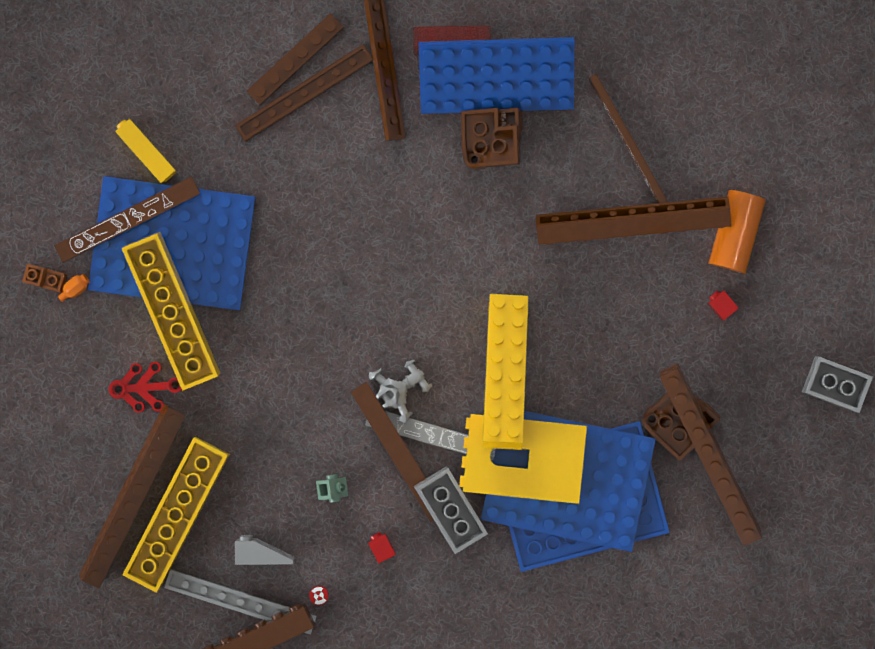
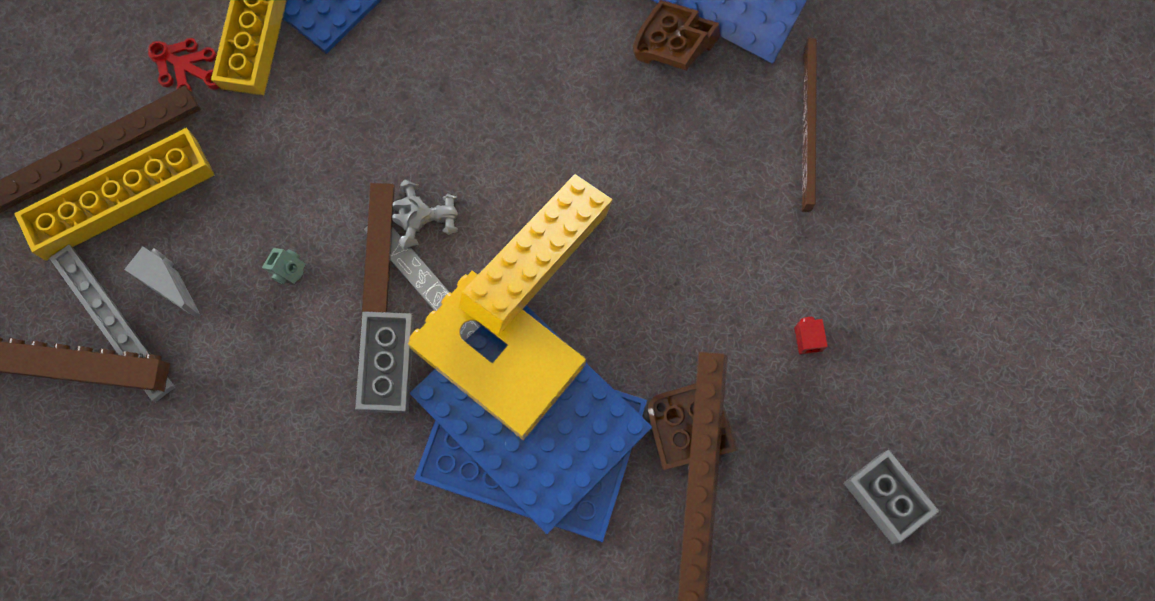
camera: 30 degrees right, 15 degrees down
(319, 595) = (193, 367): red tile -> none
(381, 547) = (289, 358): red brick -> none
(633, 220) = (770, 192): reddish brown brick -> none
(735, 243) = (872, 273): orange brick -> none

